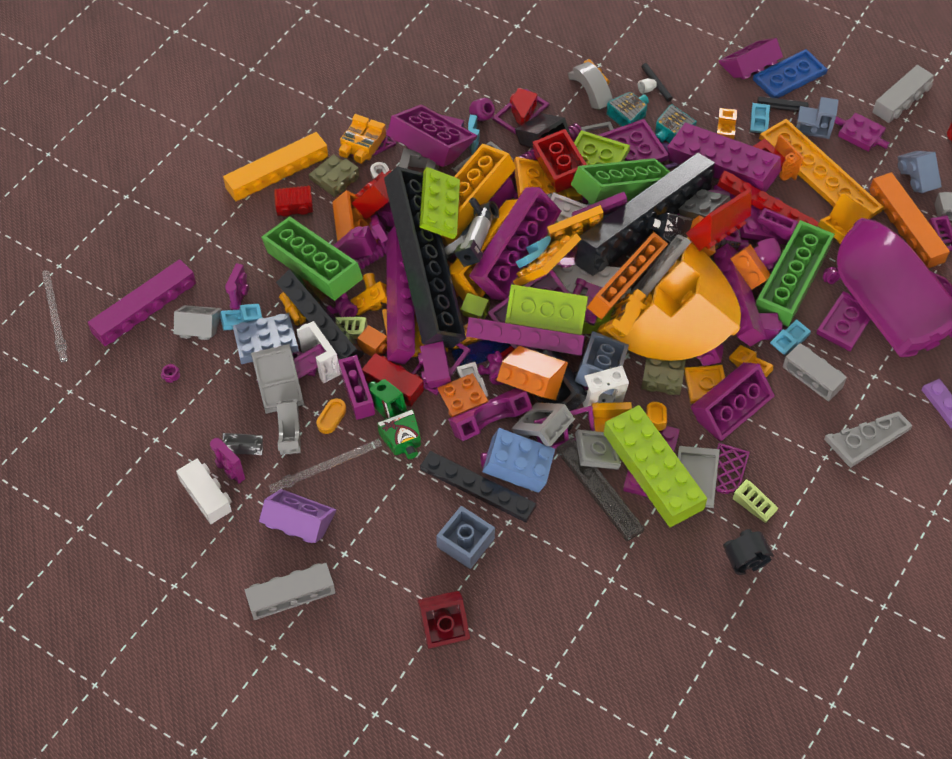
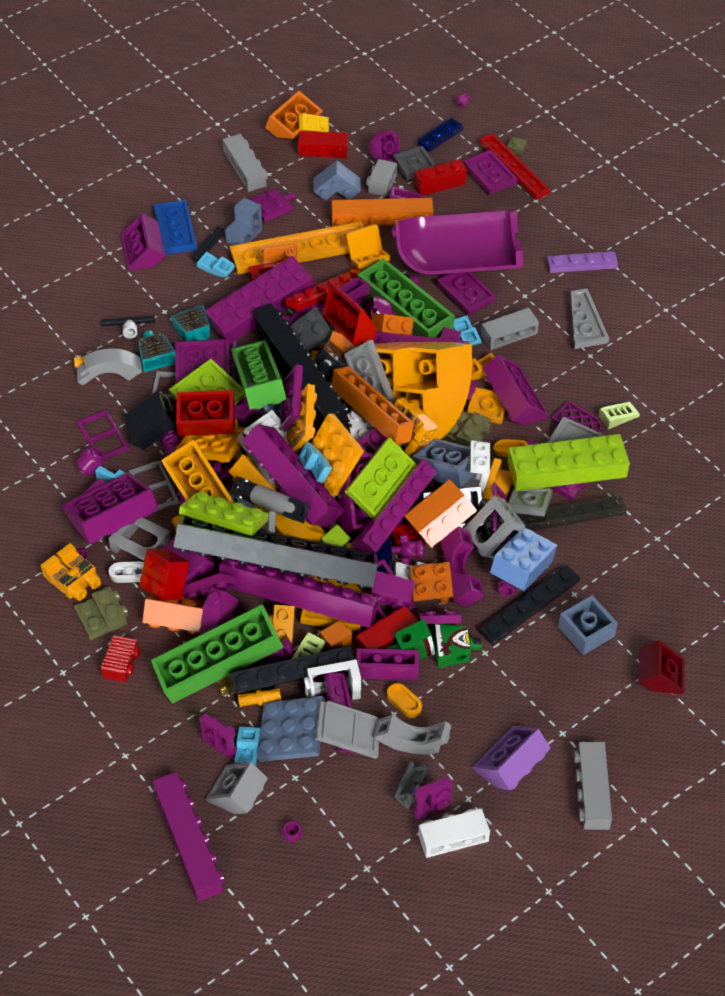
camera: 70 degrees left, 5 degrees down
(60, 342) = (203, 934): clear bar -> none
(275, 166) = (63, 662): light orange brick -> none
(288, 481) = (467, 754): clear bar -> none
(422, 413) = (449, 617): none -> magenta plate
(523, 105) = (106, 428): red slope -> none
(727, 122) = (205, 288): light orange slope -> none
(748, 552) = (671, 431): black brick -> none

